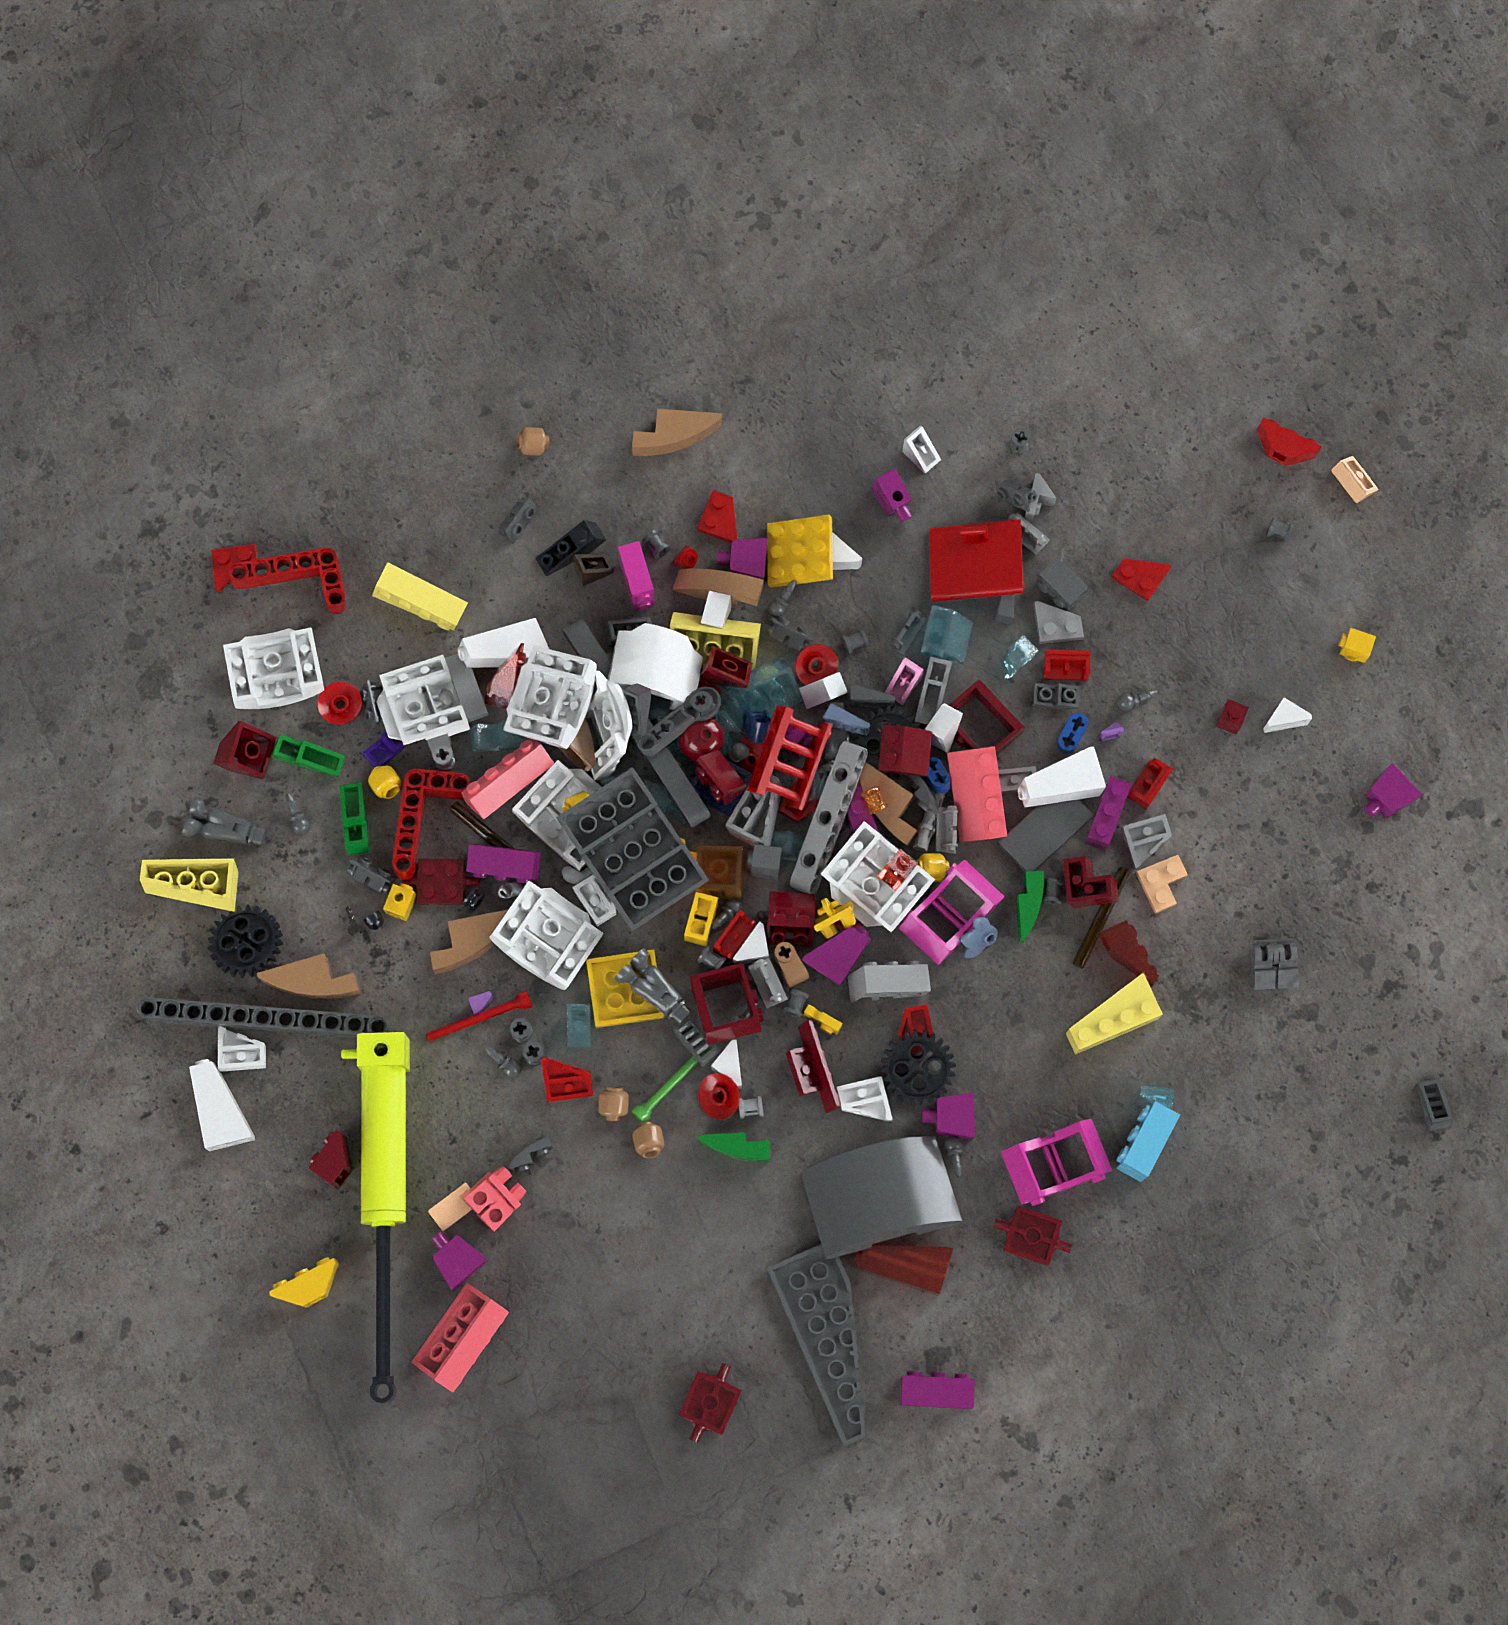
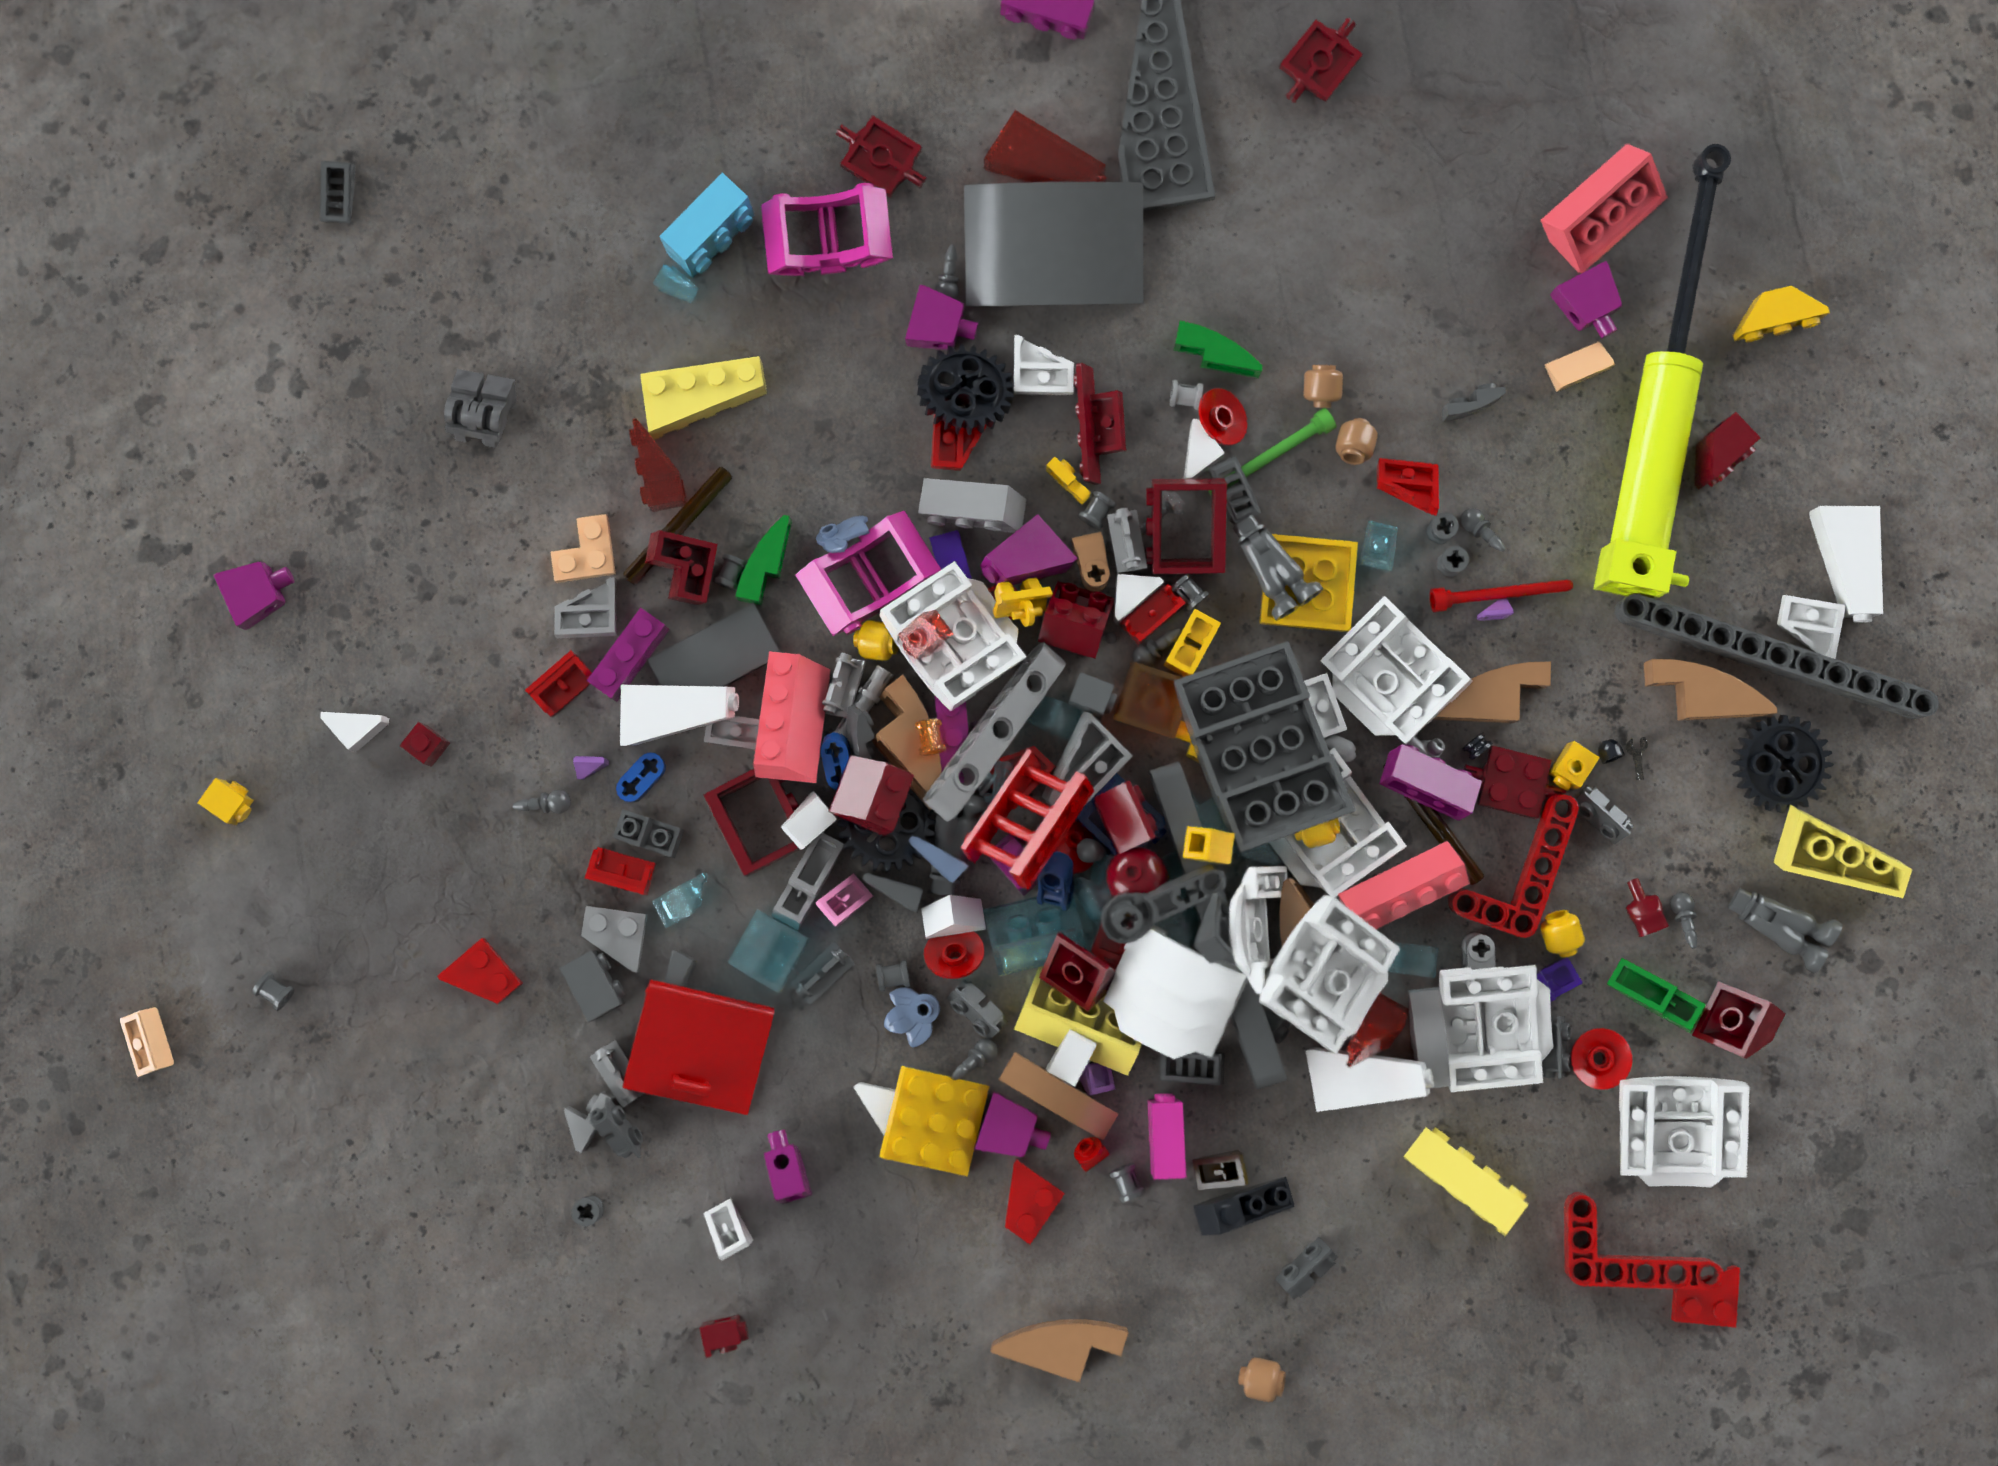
camera: 165 degrees left, 10 degrees up
(326, 813) = (1645, 910): none -> dark red piece
(354, 818) = (1611, 894): green slope -> none
(492, 1199) = (1532, 357): coral hips -> none
(656, 765) = (1208, 845): none -> yellow brick
(693, 605) = (1097, 1079): none -> medium lavender slope
(836, 617) = (907, 1015): none -> sand blue plate
(894, 943) = (949, 548): none -> dark purple slope
(905, 386) = (723, 1334): none -> dark red brick
(1285, 444) = (223, 1113): red slope -> none

